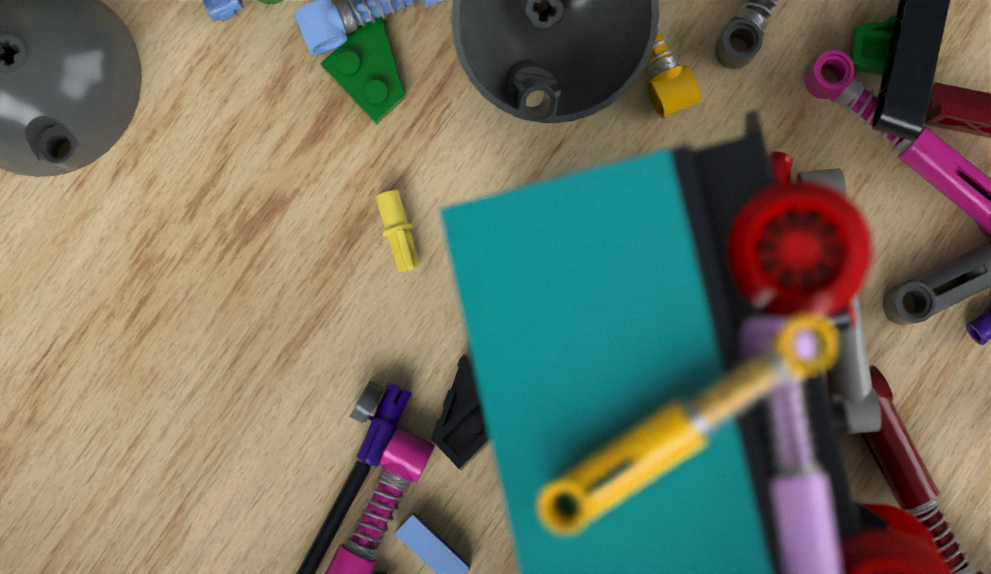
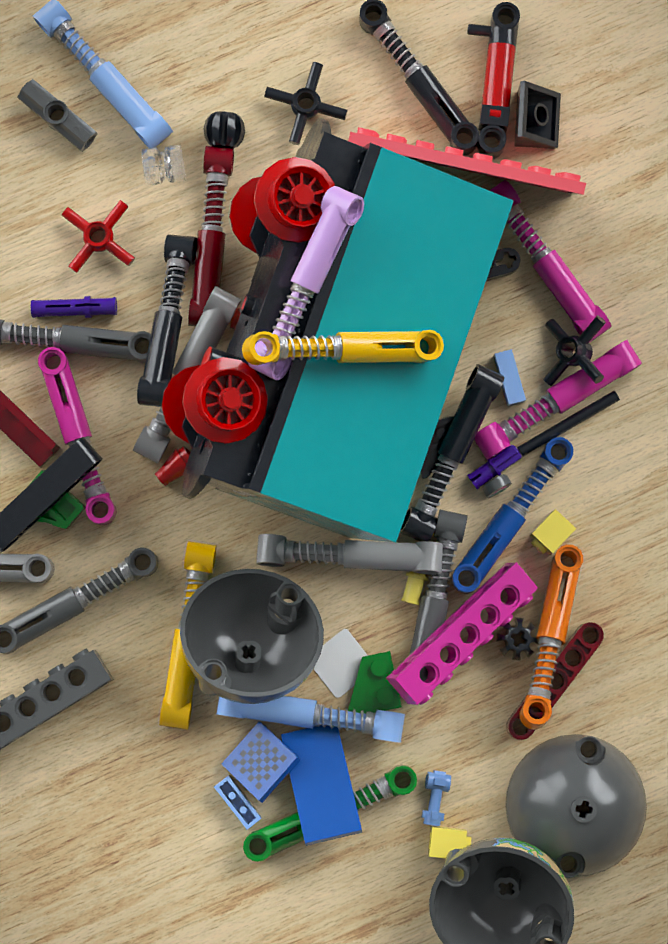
camera: 145 degrees left, 0 degrees up
(142, 188) = (566, 672): none -> dark red beam
(184, 256) = (552, 633): none -> orange piece
(218, 220) = (510, 641): none -> black piece
(262, 385) = (551, 533): none -> light yellow brick
(313, 174) = (406, 676): none -> dark pink brick
(325, 372) = (510, 517): none -> blue piece
(354, 206) = (433, 605): none -> dark grey piece
(425, 239) = (417, 557): none -> light grey piece
(428, 74) = (340, 662): none -> white sticker
(456, 510) = (480, 392): none -> black piece
(941, 446) = (166, 327): none -> black piece

